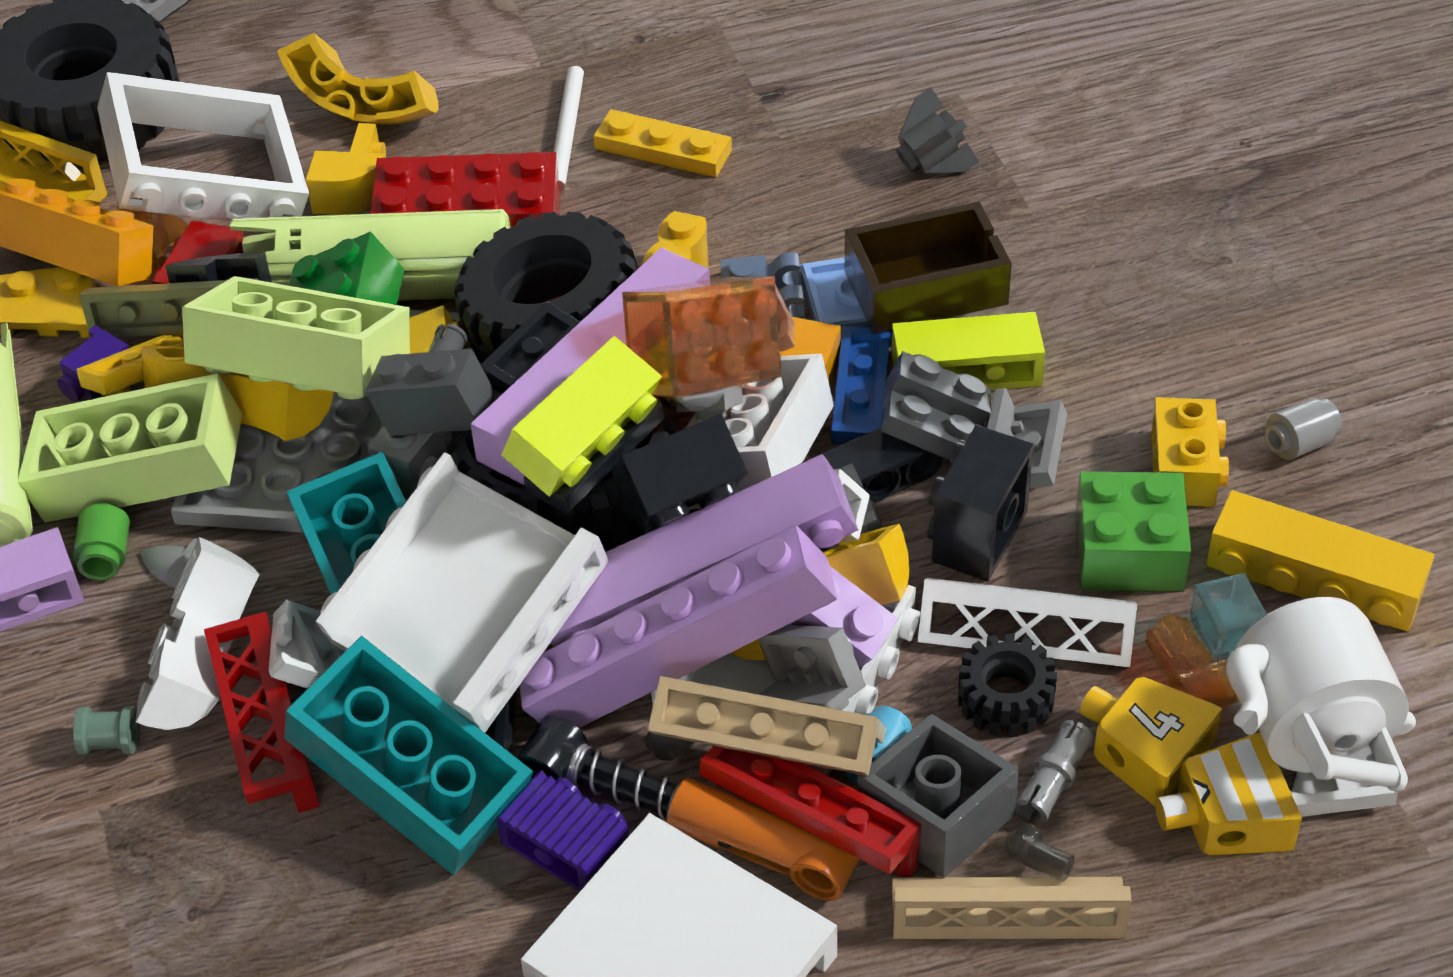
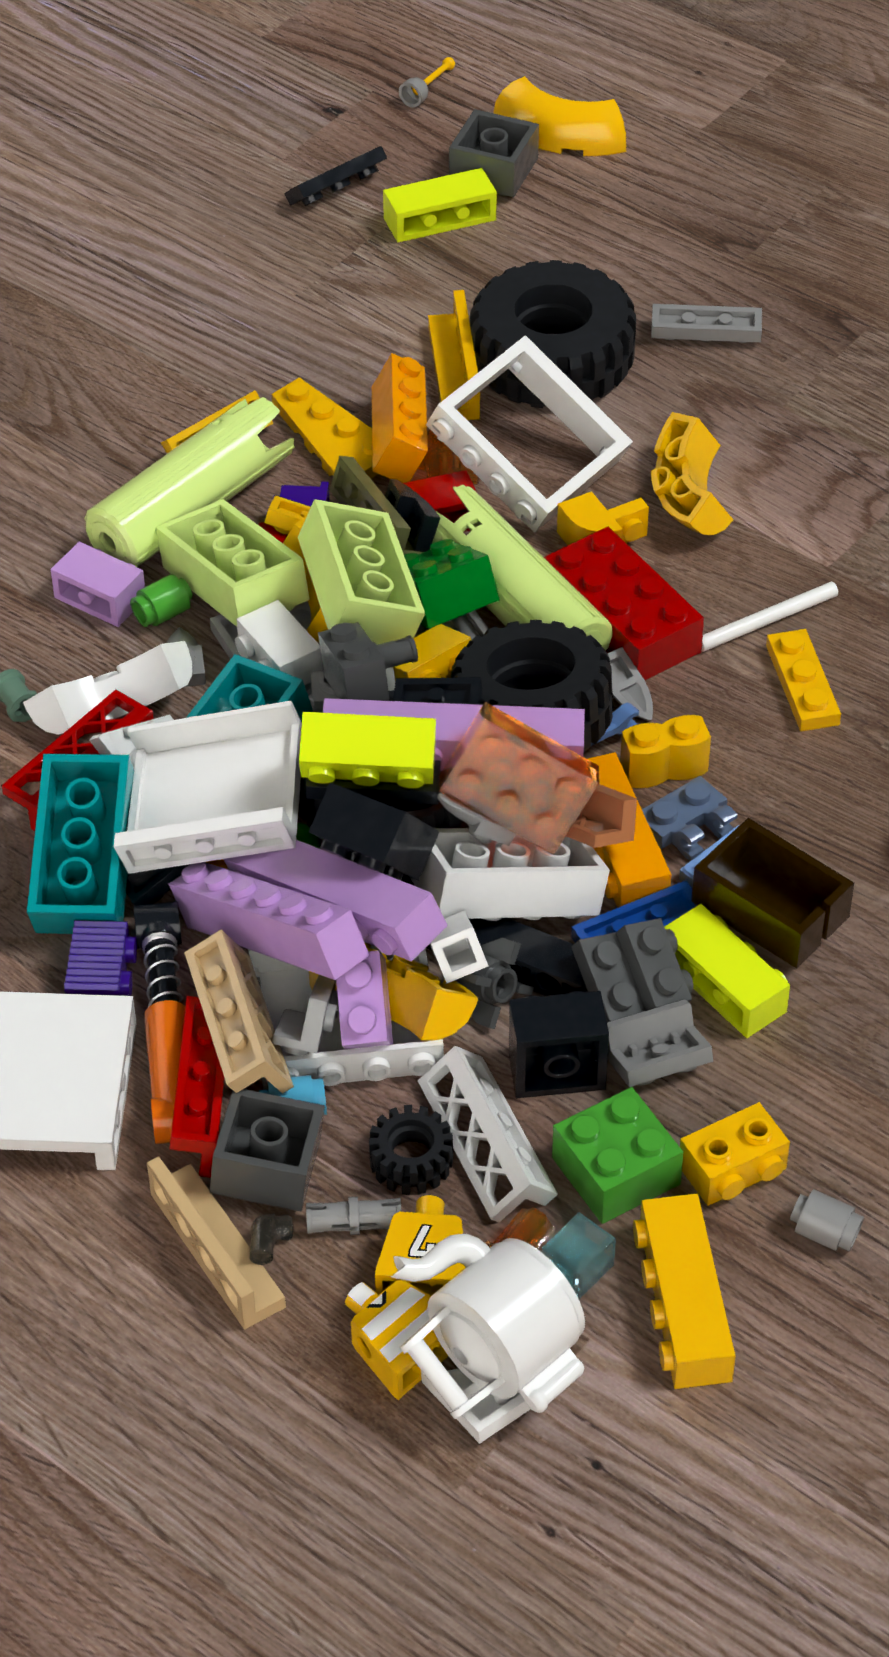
camera: 55 degrees right, 0 degrees up
(278, 459) = (278, 641): none -> white brick

